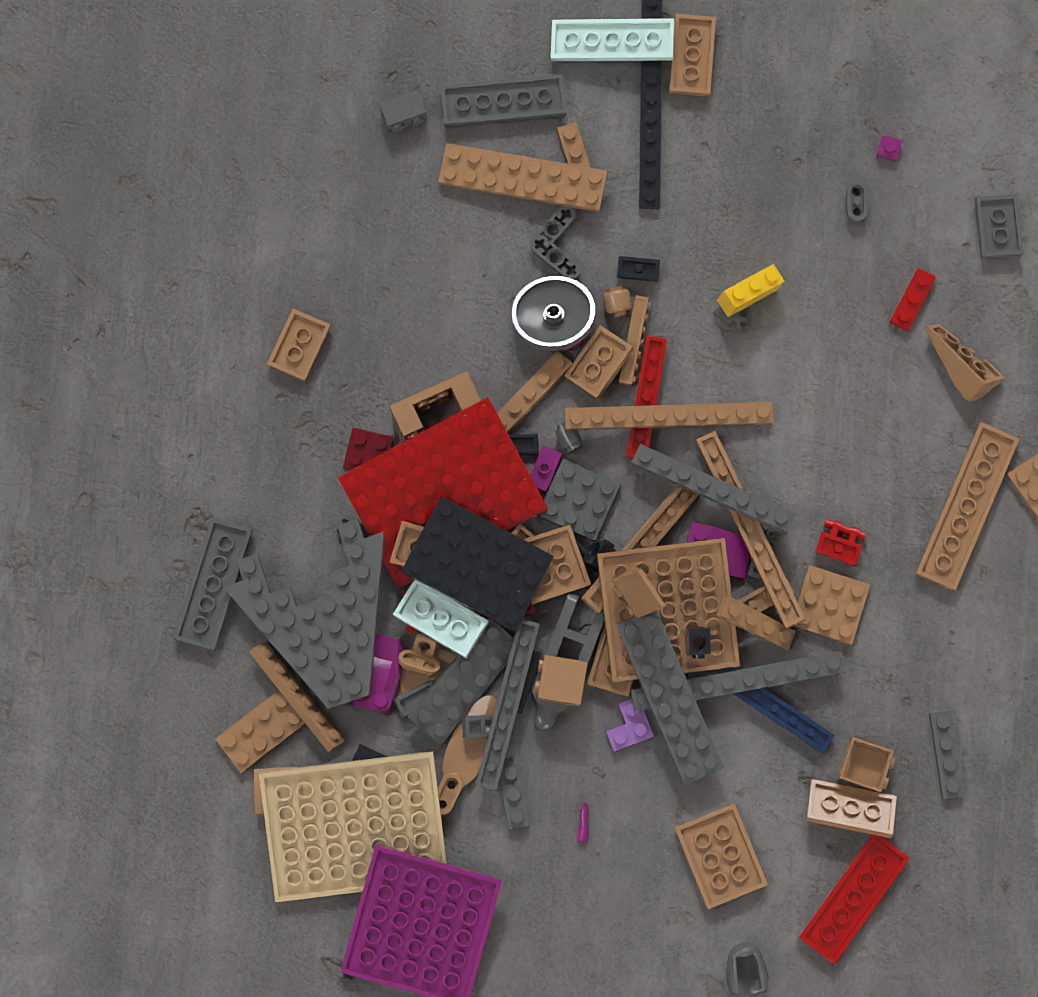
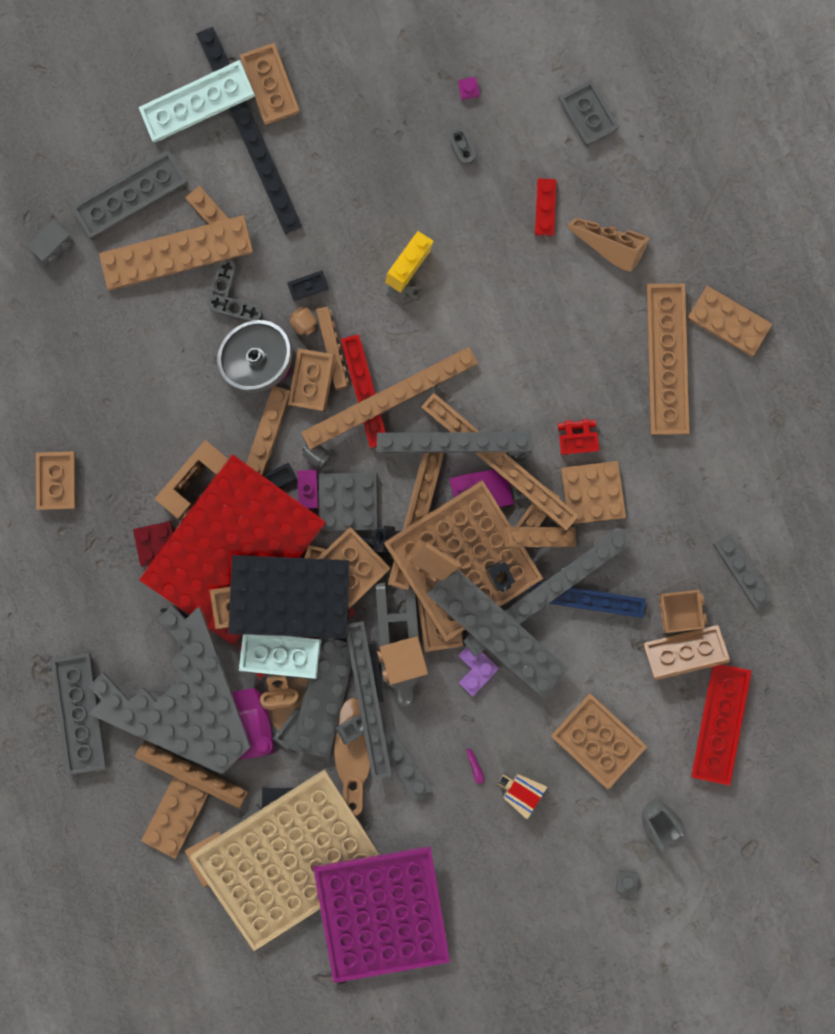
camera: 20 degrees left, 5 degrees up
(619, 871) = (522, 793): none -> torso

